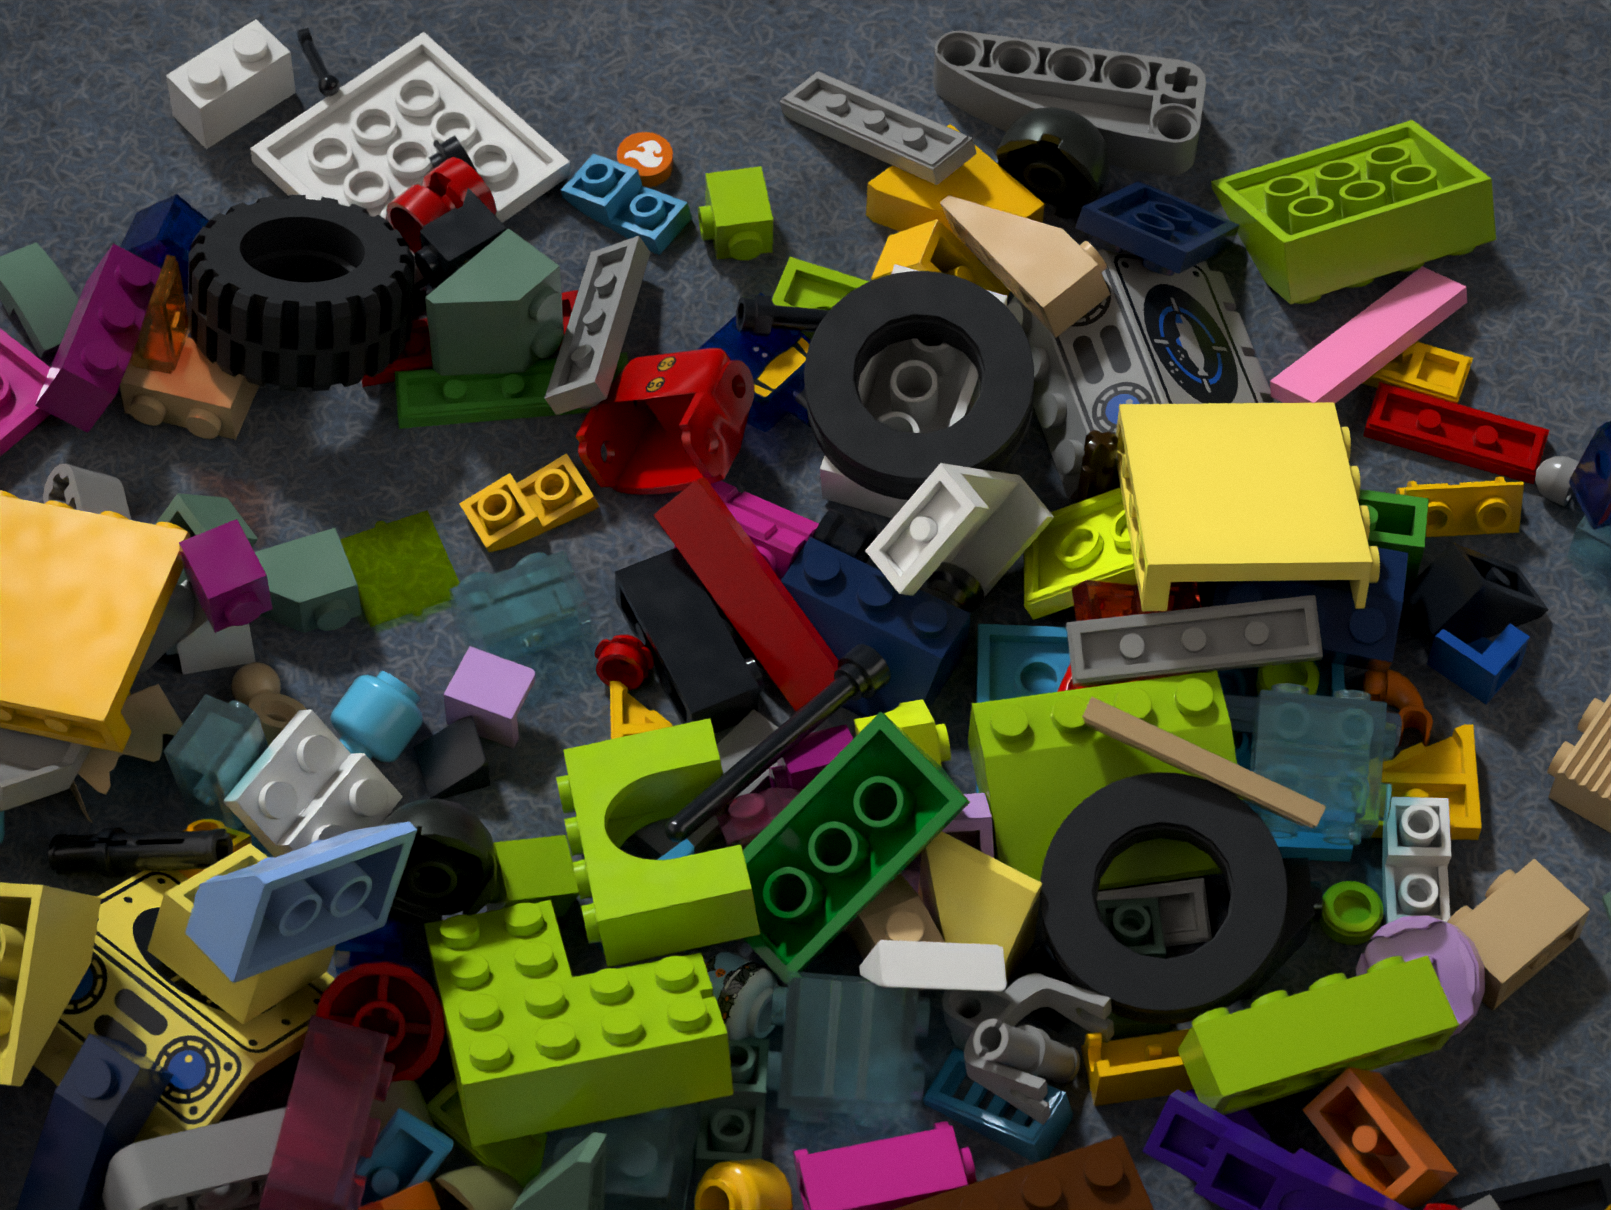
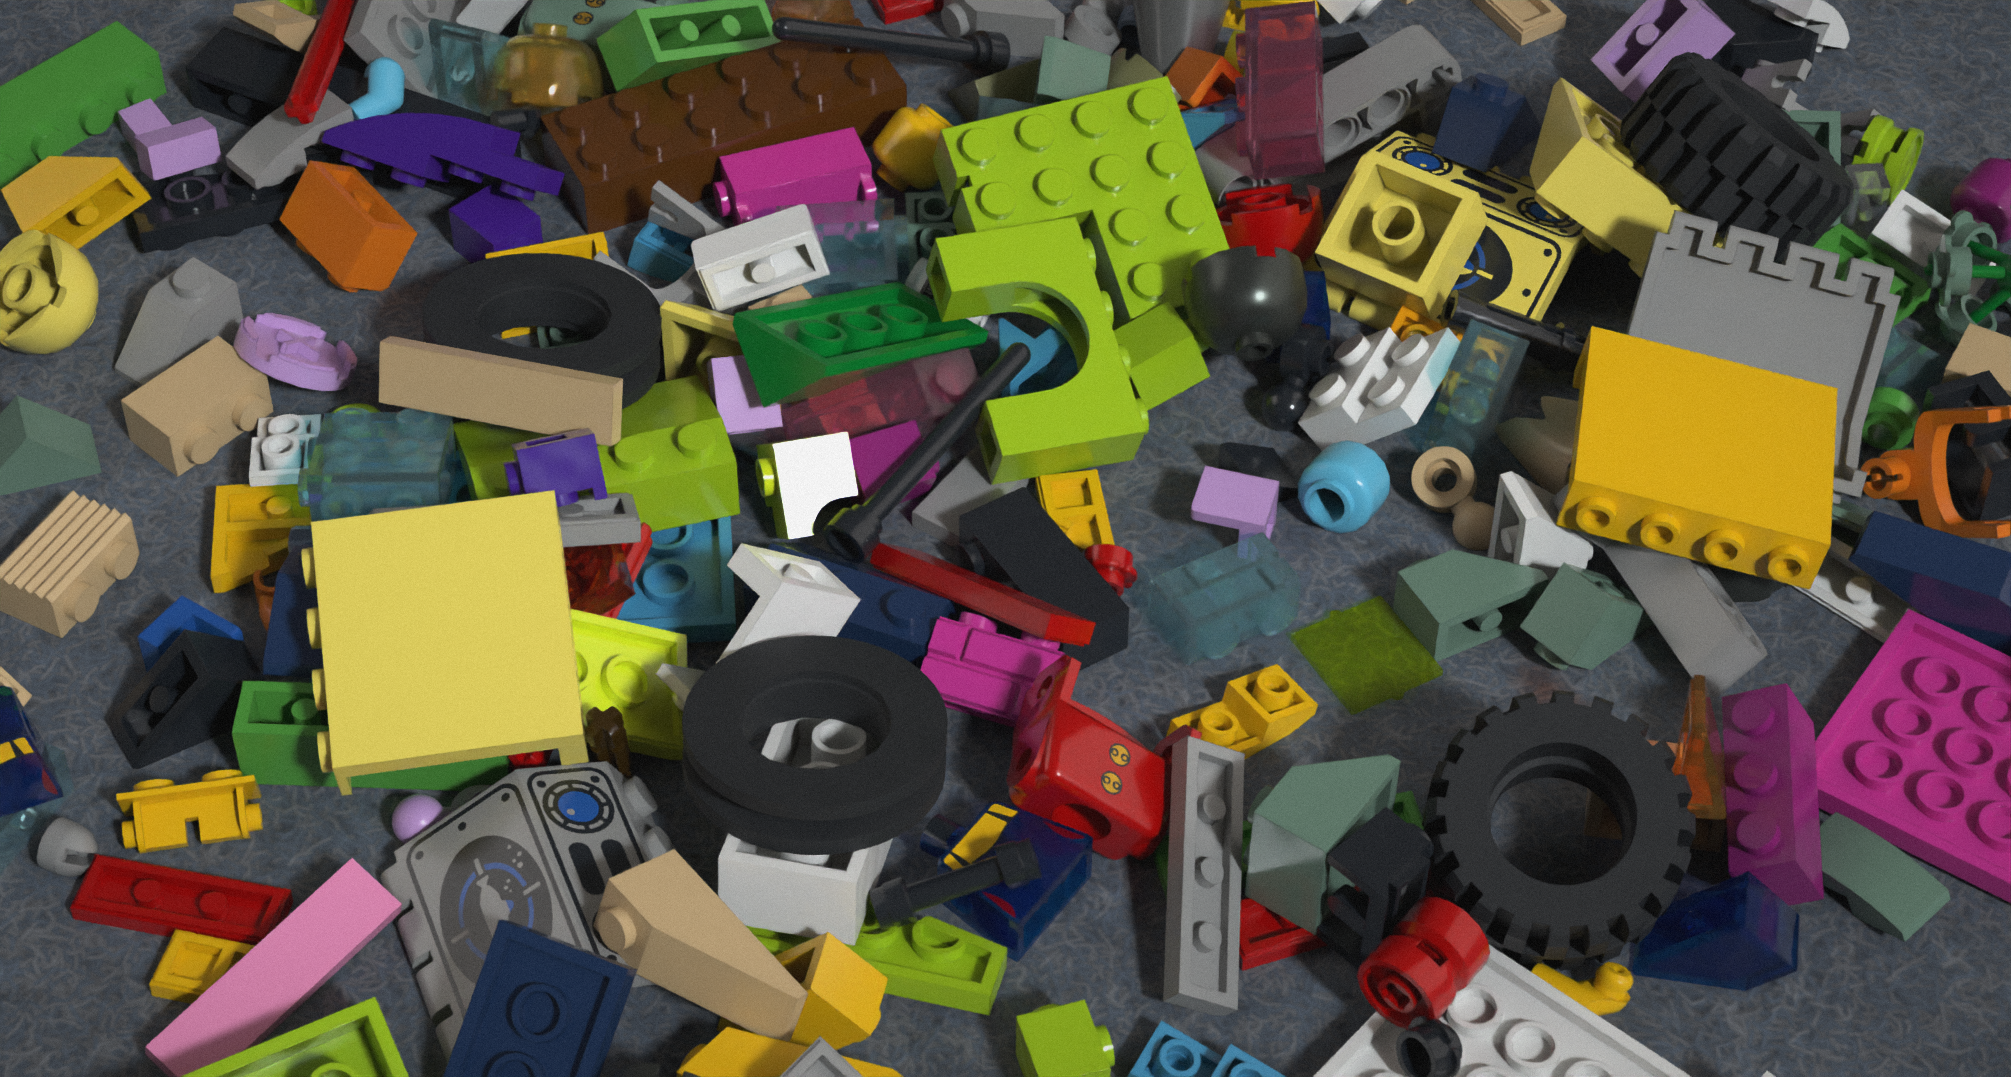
camera: 175 degrees right, 10 degrees down
(226, 576) = (1520, 454): magenta brick -> none
(300, 900) = (1352, 181): light blue slope -> none
(1026, 1050) = (671, 249): light grey pin -> none
(1167, 667) = (557, 463): none -> dark purple brick
(1315, 1035) = (397, 252): lime brick -> none
(1541, 1043) = (178, 319): none -> light grey slope

